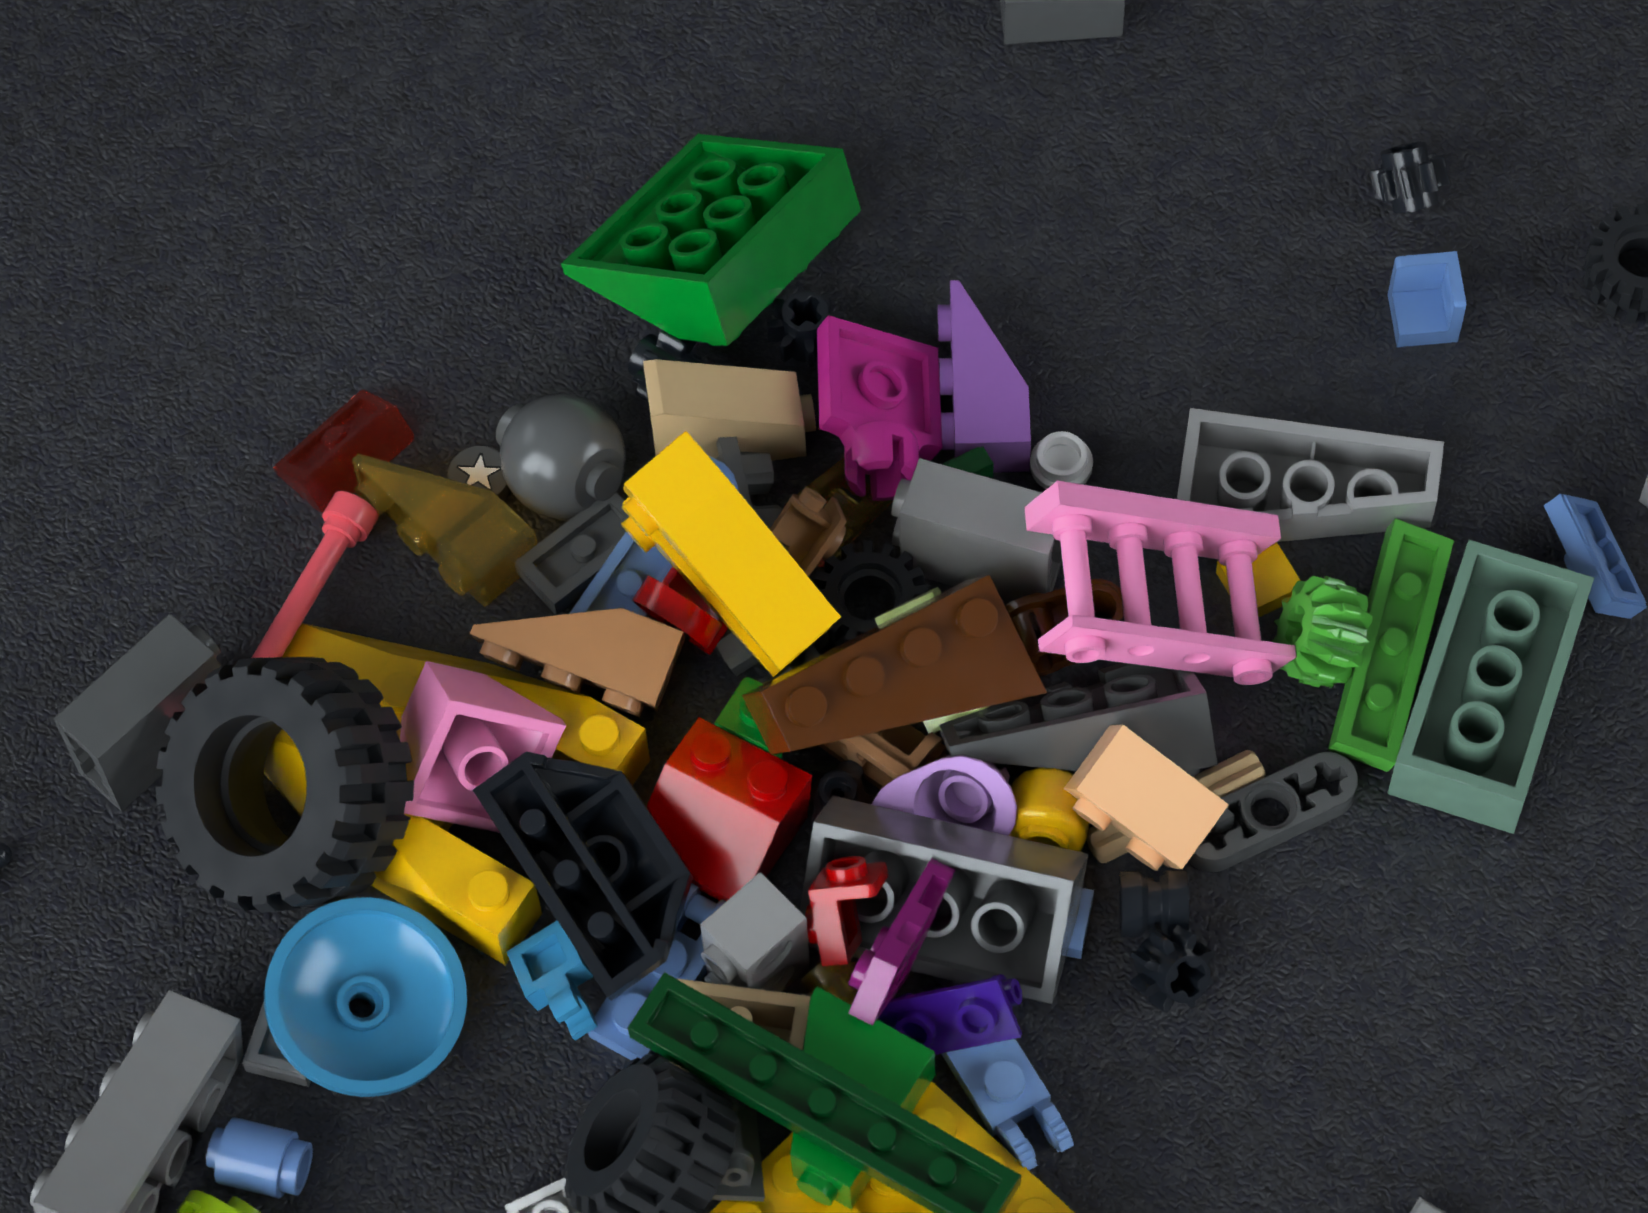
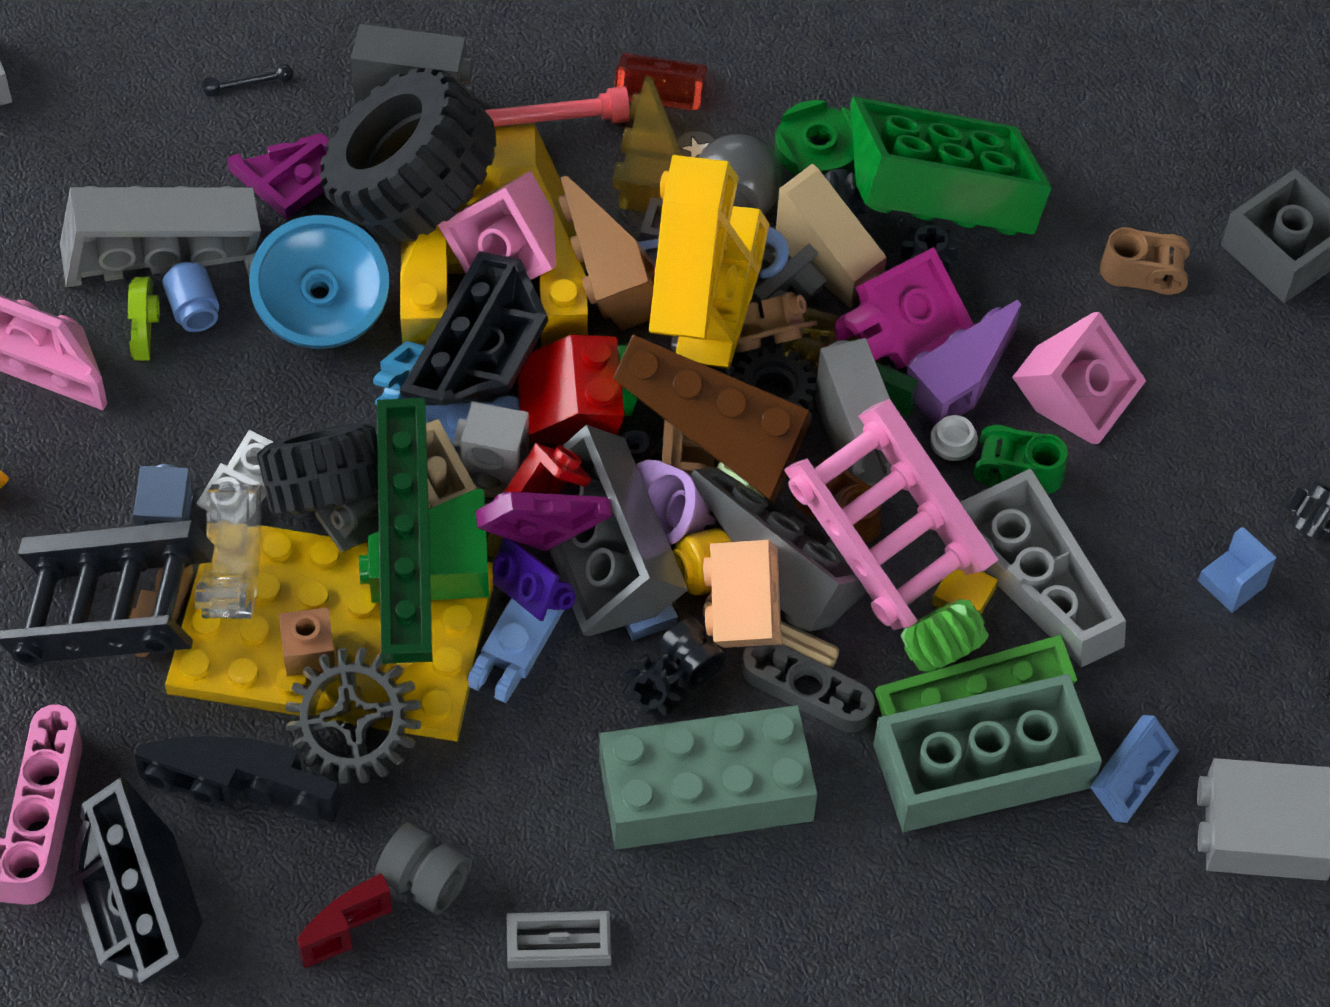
camera: 50 degrees right, 5 degrees down
(159, 938) = (286, 175): none -> magenta wing
(575, 371) = (812, 119): none -> green plate
(985, 121) = (1143, 260): none -> medium nougat piece
(1082, 289) = (1081, 378): none -> bright pink slope
(1134, 422) = (1018, 454): none -> green piece
(1326, 989) = (707, 777): none -> sand green brick

